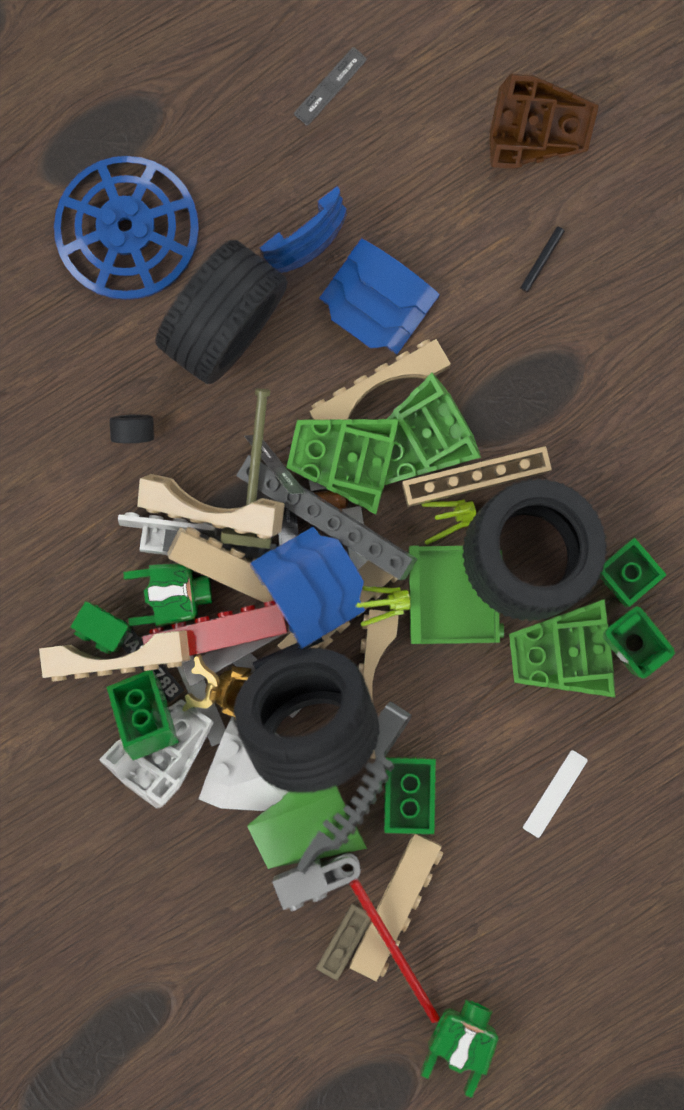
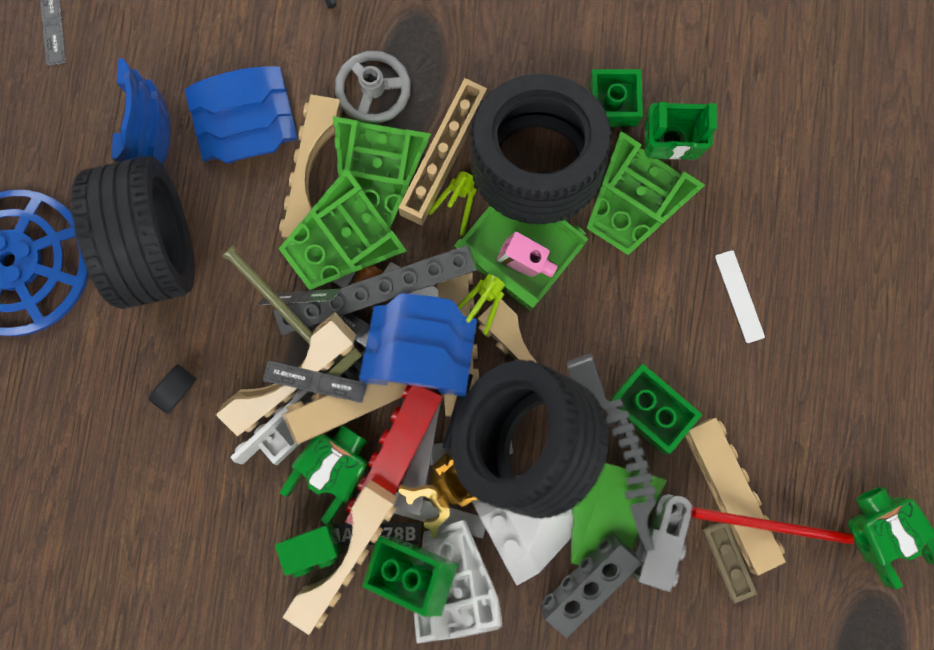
camera: 55 degrees left, 5 degrees down
(222, 532) = (315, 382): none -> flat silver sticker
(230, 856) = (587, 598): none -> dark grey brick
(444, 597) = (517, 253): none -> bright pink torso
(489, 368) = (373, 86): none -> light grey piece

